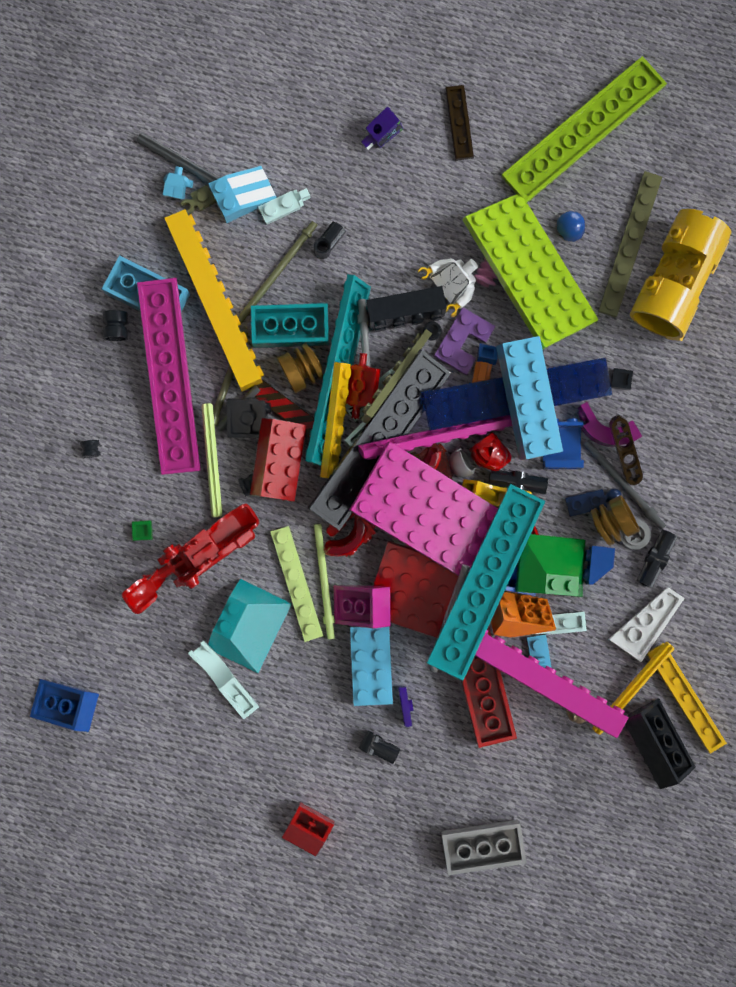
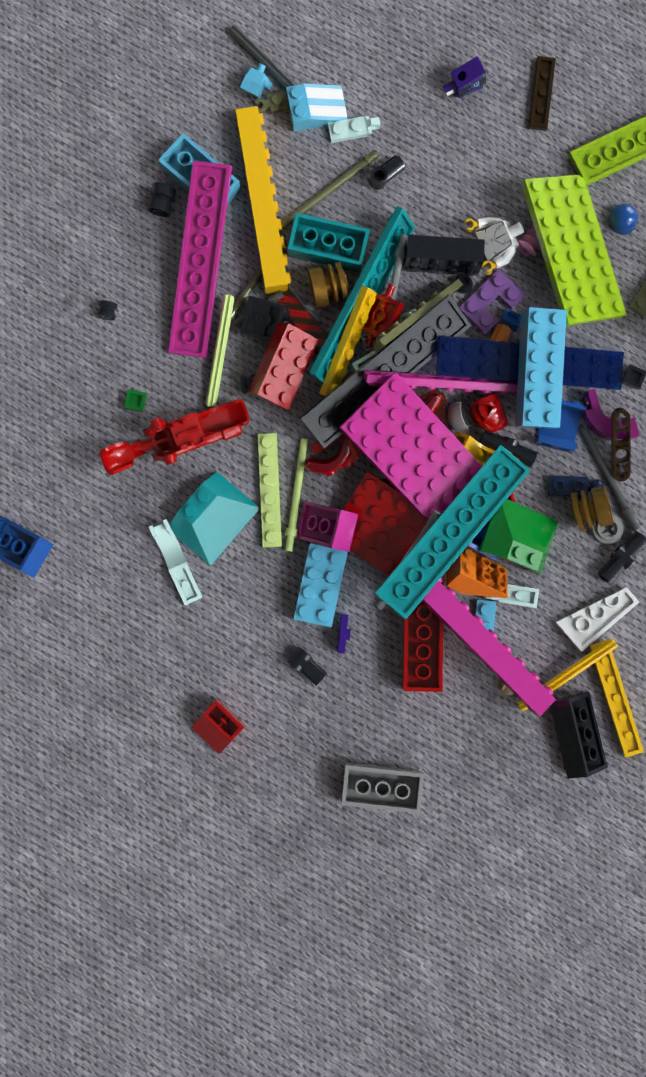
camera: 15 degrees right, 0 degrees up
(599, 563) = (566, 545): blue slope -> none

